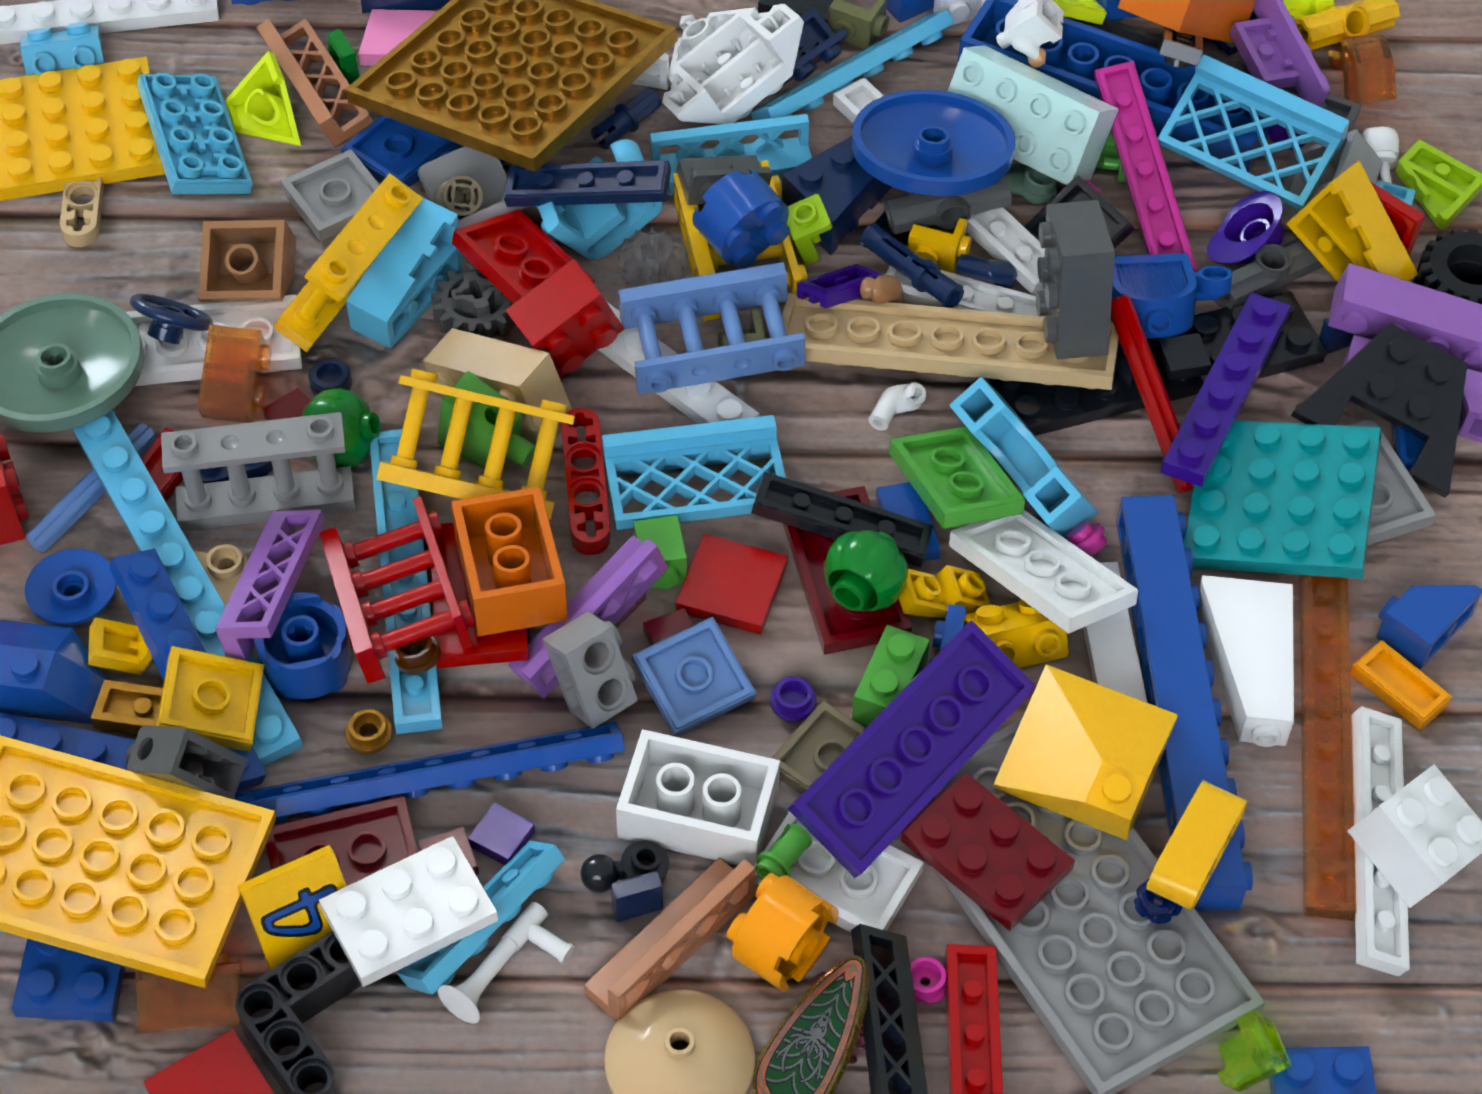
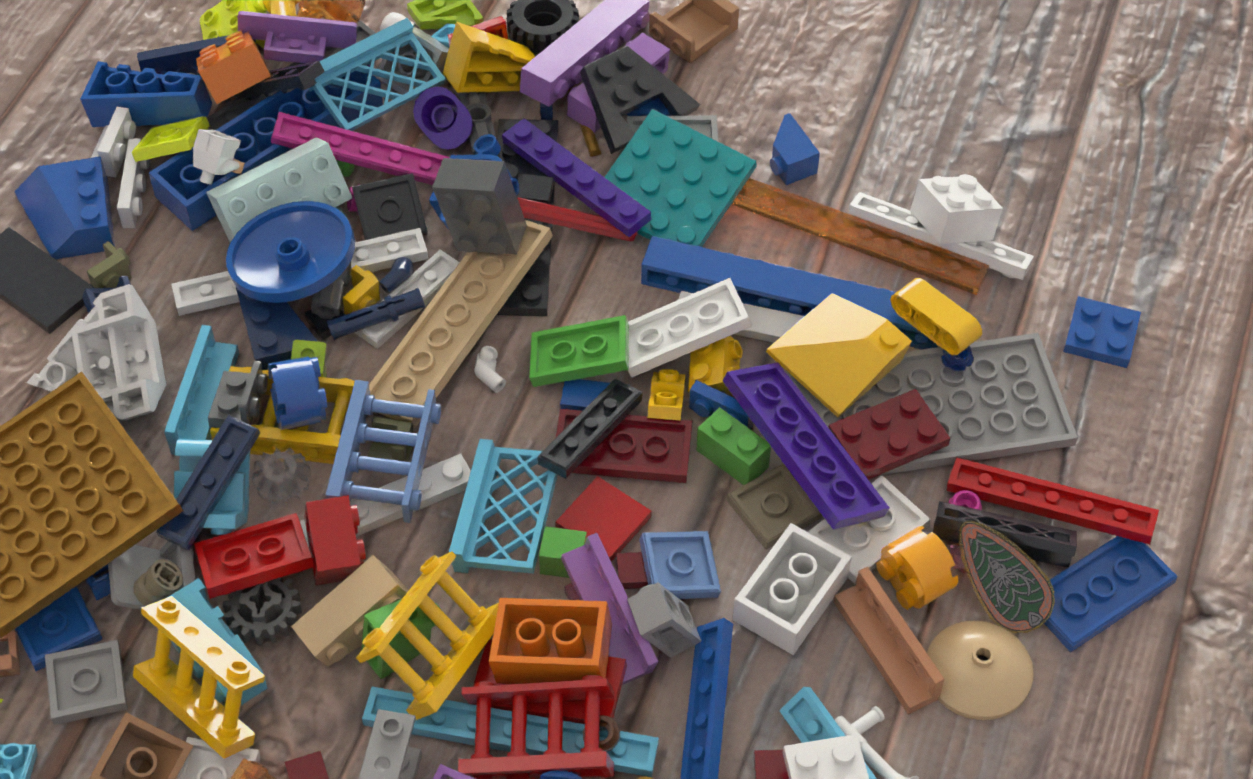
camera: 70 degrees left, 0 degrees up
(329, 374) = (281, 738): dark blue tile -> none
(359, 423) = (345, 736): green plant -> none
(501, 834) = (766, 728): tile -> none
(586, 480) = (471, 578): red beam -> none
(601, 870) = (823, 670): black plate -> none
(637, 896) = (851, 653): dark blue tile -> none
(783, 852) = (858, 550): bright green pin -> none
(793, 699) = (719, 512): dark purple plate -> none
(835, 286) = (377, 374): dark purple tile -> none
(865, 63) = (155, 286): medium azure plate -> none
(865, 570) = (652, 422): green plant -> none
(882, 289) = (391, 338): medium nougat arm -> none
(1023, 457) = (558, 311): medium azure arch -> none
(1088, 537) = (657, 297): dark pink plate -> none
(1252, 653) = (788, 243): white slope -> none
(1253, 1053) = (1071, 352): clear neon green panel -> none
(1400, 685) = (829, 184): light orange tile -> none

